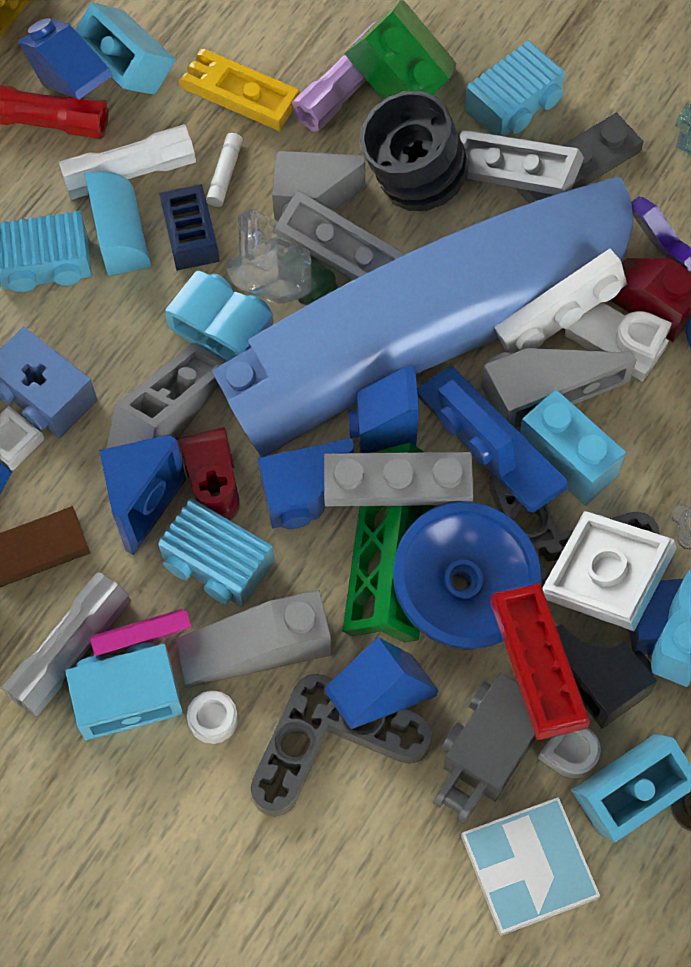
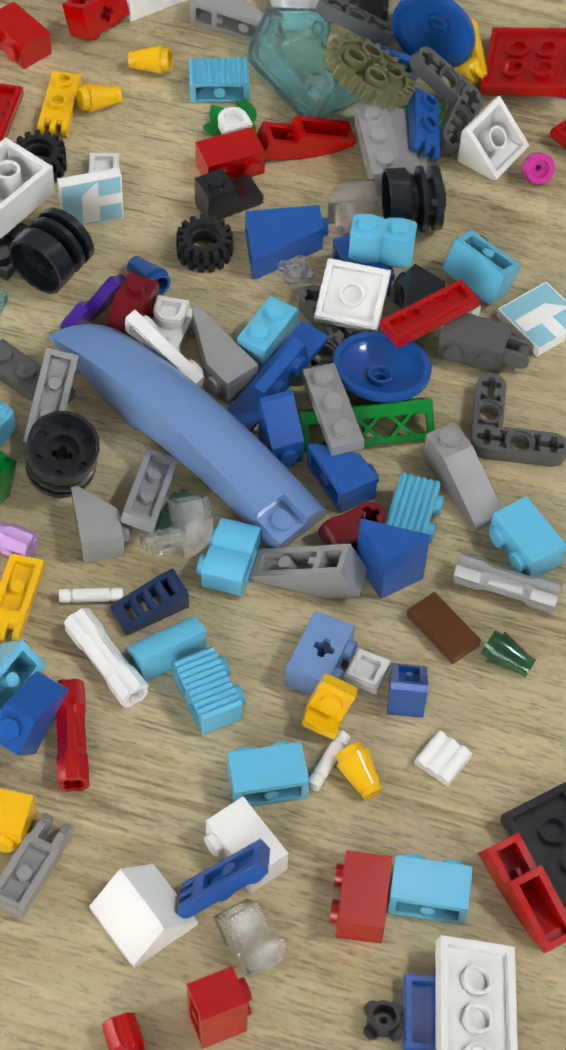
camera: 110 degrees left, 10 degrees down
(140, 632) = (487, 540): dark pink tile -> none
(212, 717) = (517, 489): white tile -> none
(379, 684) = (471, 399): blue slope -> none

